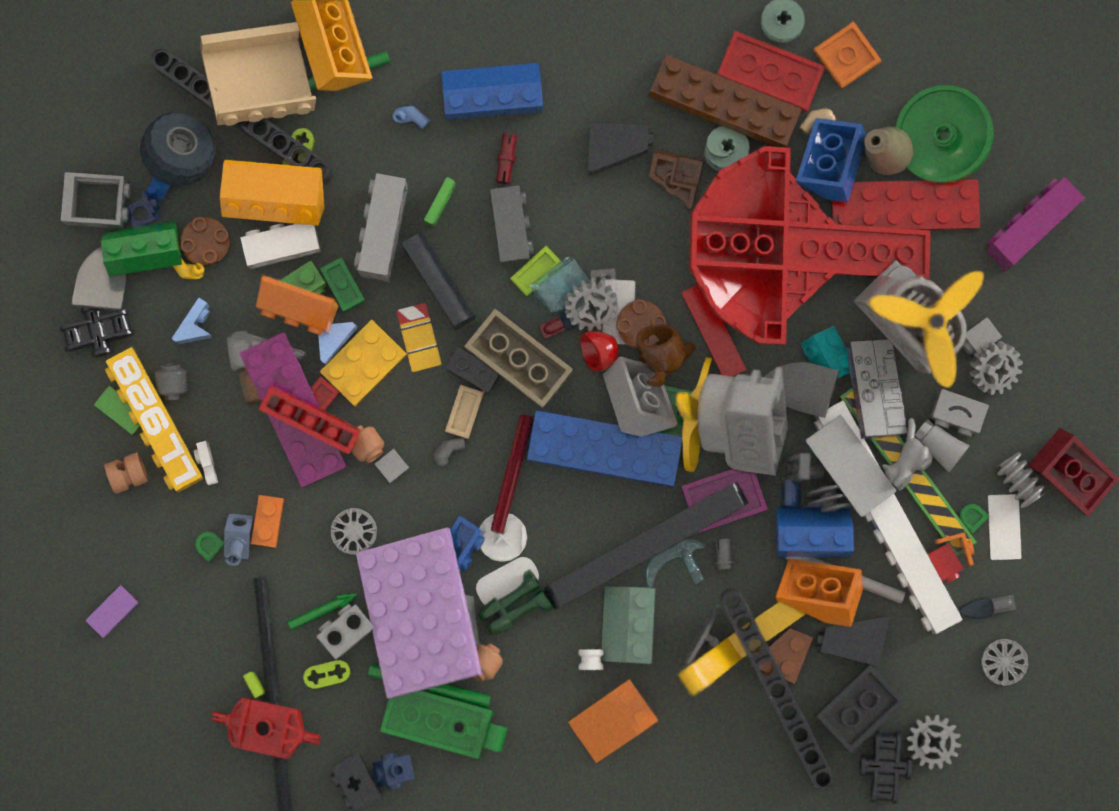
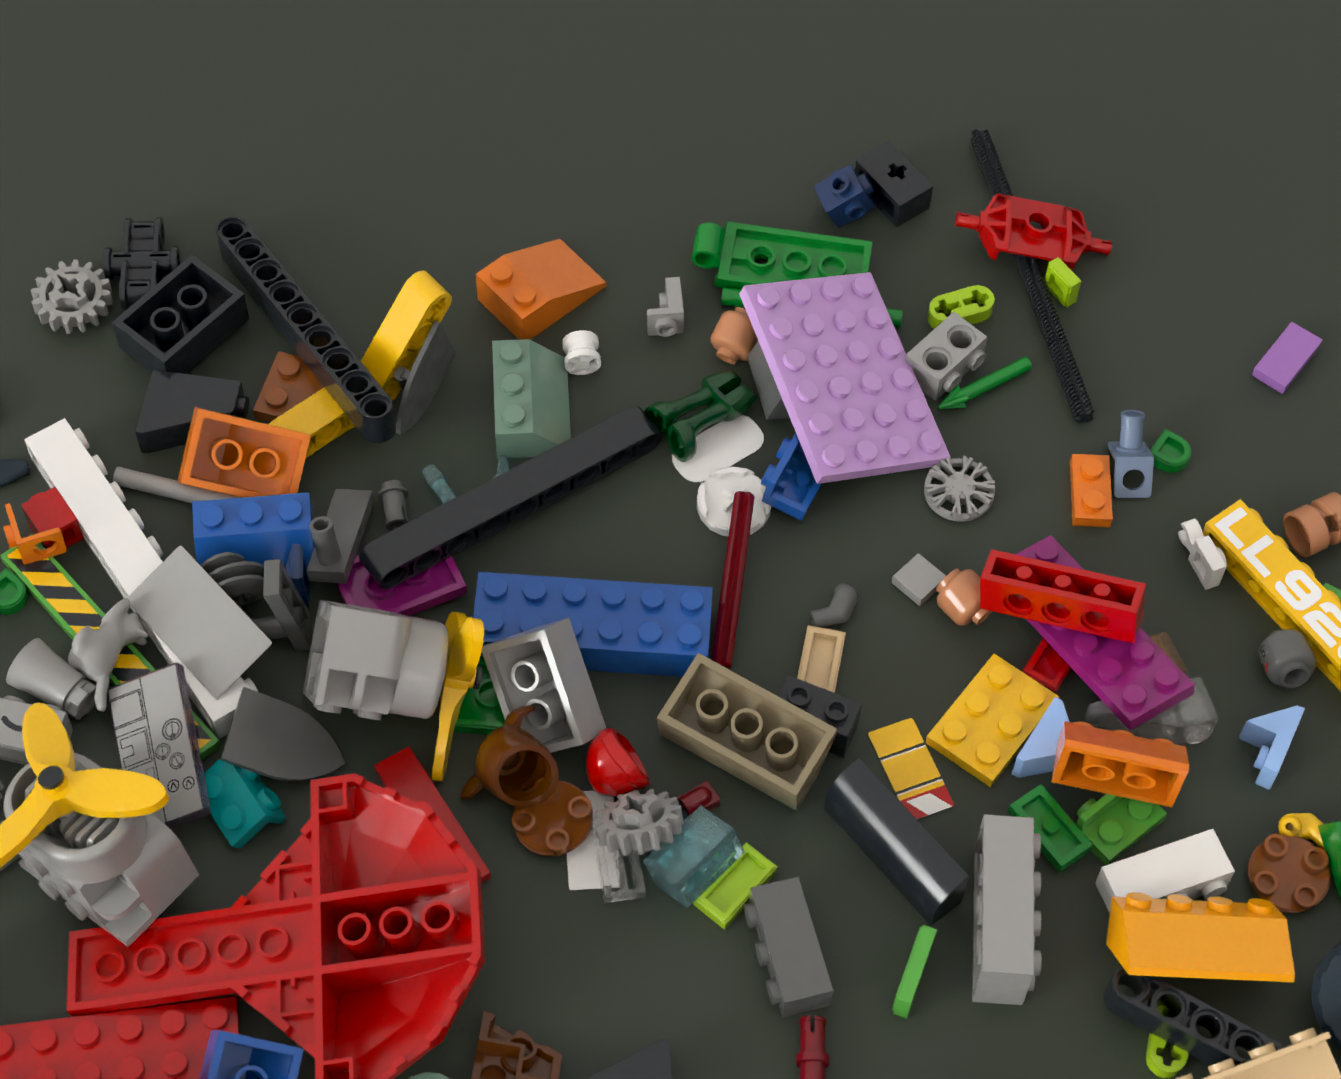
camera: 175 degrees right, 25 degrees down
(526, 694) = (670, 316): none -> light grey bracket
(759, 531) = (339, 535): none -> dark grey piece

